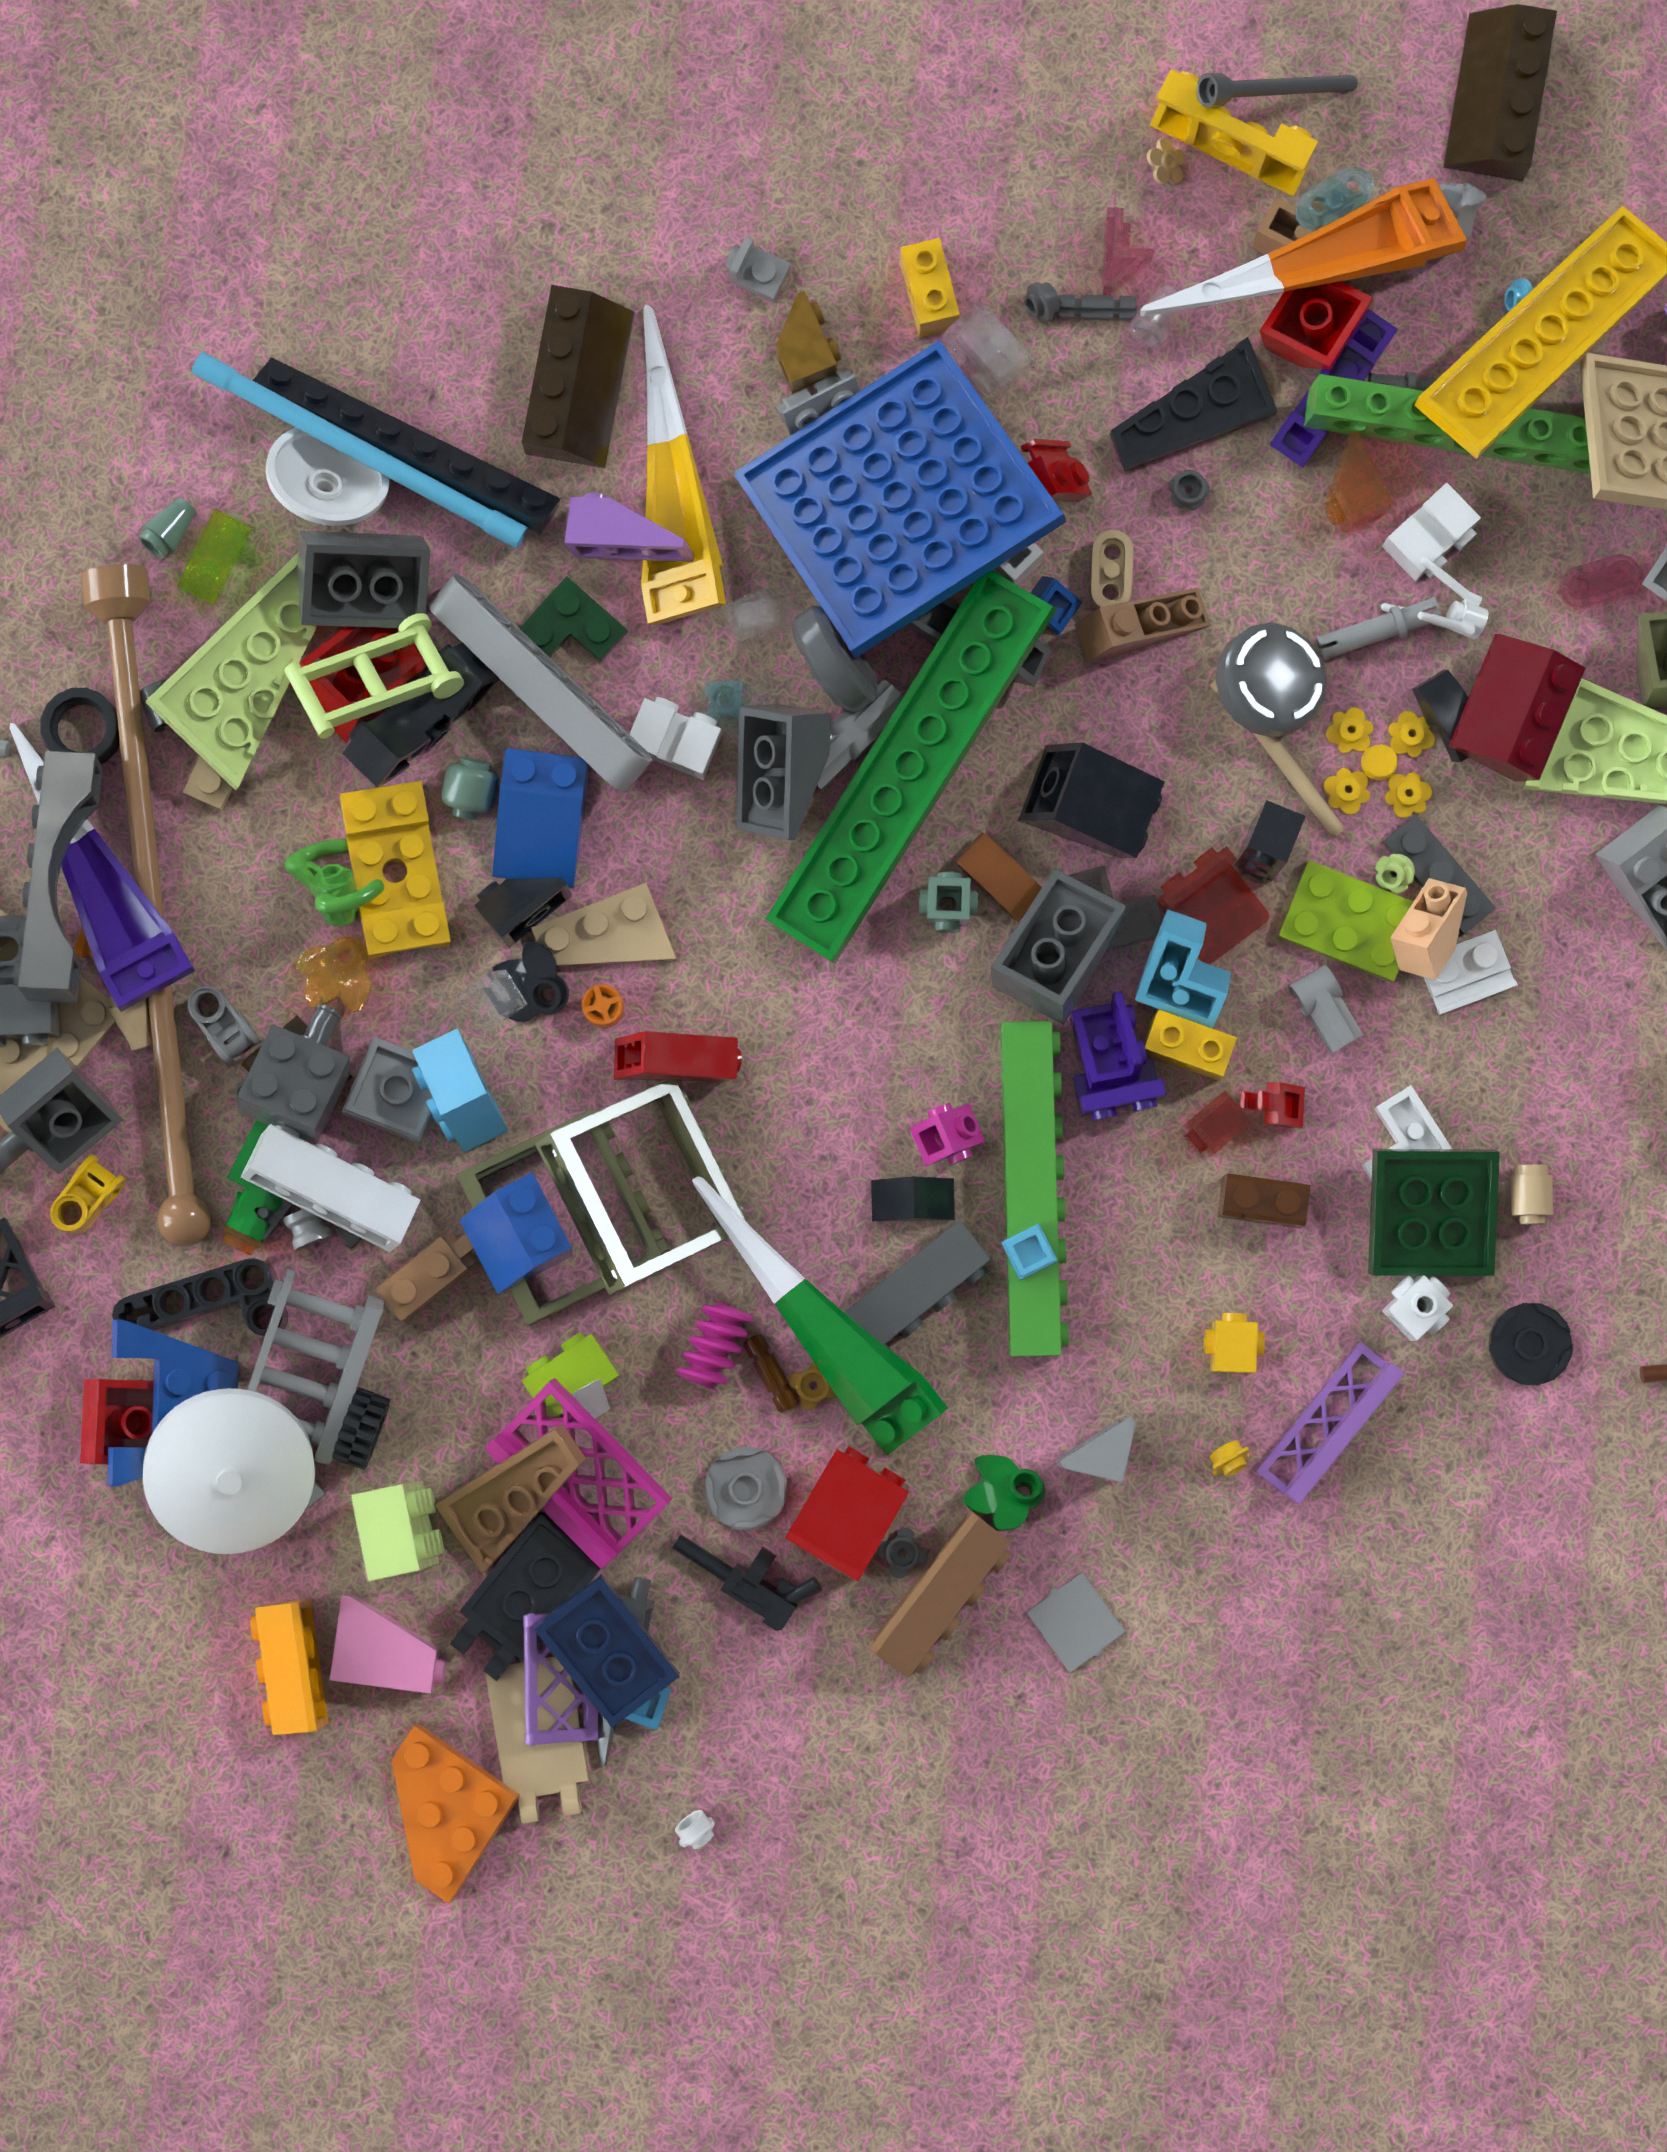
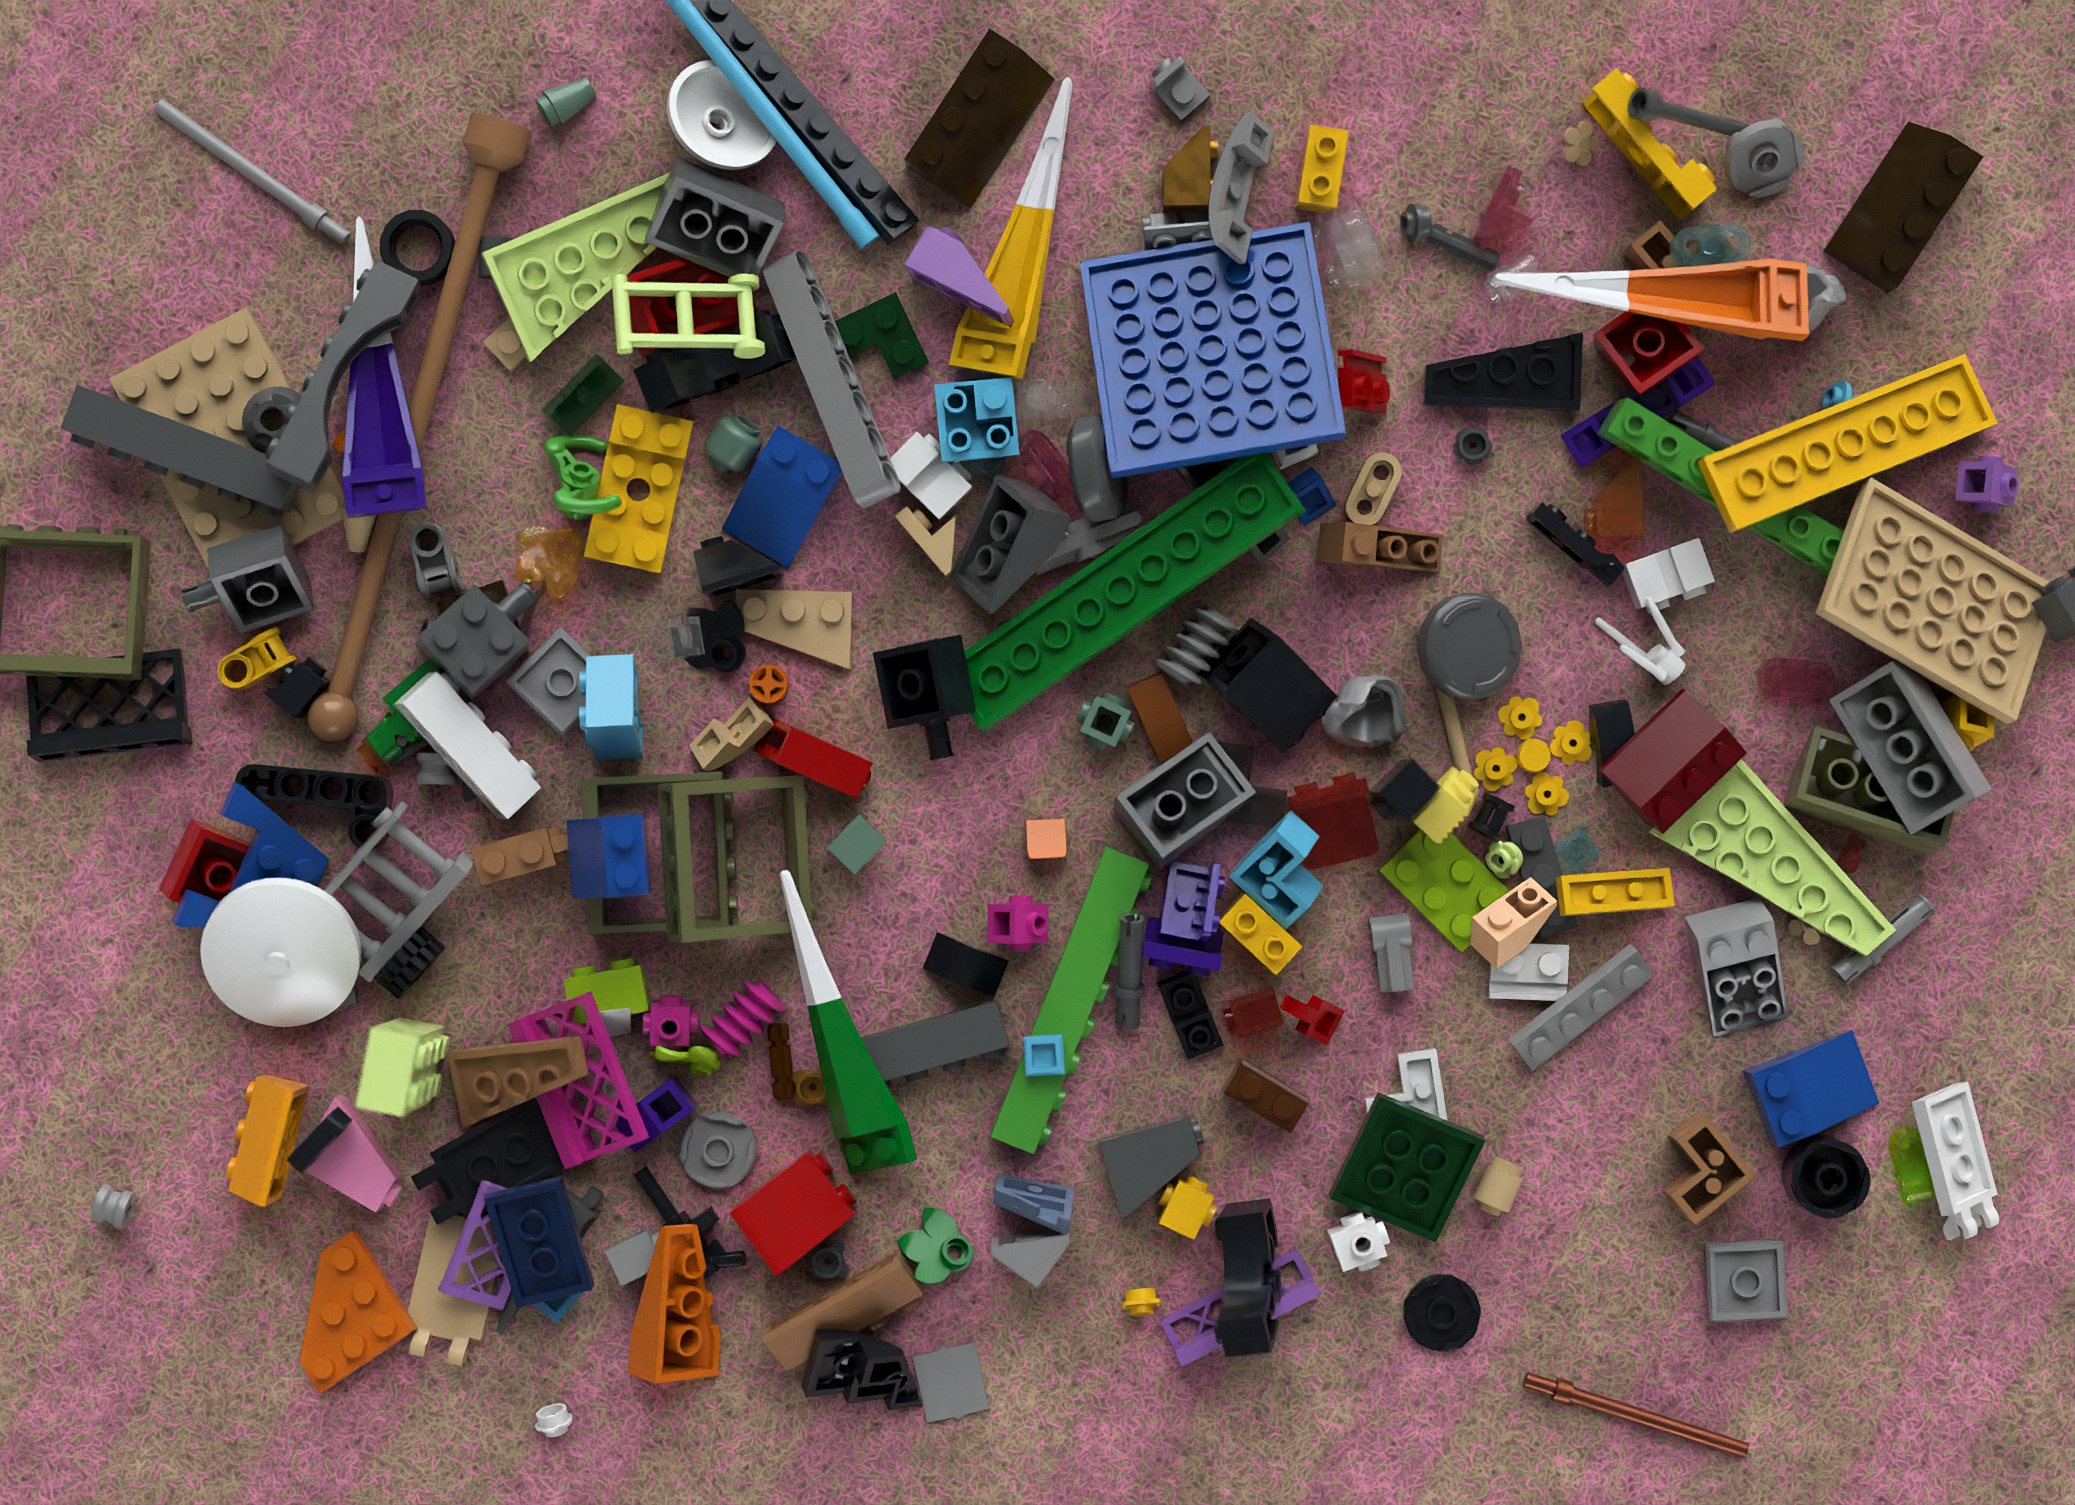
camera: 20 degrees right, 5 degrees up
(139, 1203) = (299, 687): none -> black brick
(163, 1802) = (113, 1206): none -> light grey wheel
(215, 556) = (596, 144): clear neon green slope -> none
(302, 801) = (583, 394): none -> clear green slope
(344, 1642) = (319, 1140): none -> black beam
(582, 1082) = (724, 742): none -> tan slope
(638, 1364) = (674, 1009): none -> dark pink brick
(673, 1471) = (660, 1110): none -> dark purple slope
(688, 1403) = (698, 1059): none -> lime plate
(698, 661) = (976, 420): none -> medium azure slope
(710, 803) = (937, 546): none -> tan slope
(710, 1626) = (632, 1255): none -> light grey brick
(755, 1125) = (857, 844): none -> sand green panel
(758, 941) = (926, 687): none -> black brick
(773, 1676) = (674, 1320): none -> orange wedge
(783, 680) = (1045, 465): none -> clear pink plate
(847, 303) = (1245, 150): none -> light grey slope
(939, 1043) = (1046, 838): none -> orange slope
(980, 1644) = (860, 1369): none -> black slope
(1005, 792) = (1196, 646): none -> light grey piece
(1082, 1402) = (1035, 1200): none -> sand blue wing
(1083, 1150) = (1129, 985): none -> dark grey pin
(1154, 1154) = (1190, 1014): none -> black slope
(1175, 1314) = (1149, 1158): none -> dark grey slope
(1200, 786) = (1367, 713): none -> light grey hair
(1317, 839) = (1447, 805): none -> light yellow brick
(1327, 99) = (1752, 142): none -> light grey plate
(1329, 540) = (1575, 544): none -> black hinge
(1330, 1392) = (1249, 1278): none -> black brick
(1358, 824) = (1489, 804): none -> black bush
(1377, 629) = (1582, 639): light grey pin -> none
(1473, 829) = (1588, 850): none -> clear light blue plate
(1517, 857) = (1615, 891): none -> yellow plate
(1534, 985) = (1581, 1007): none -> light grey plate

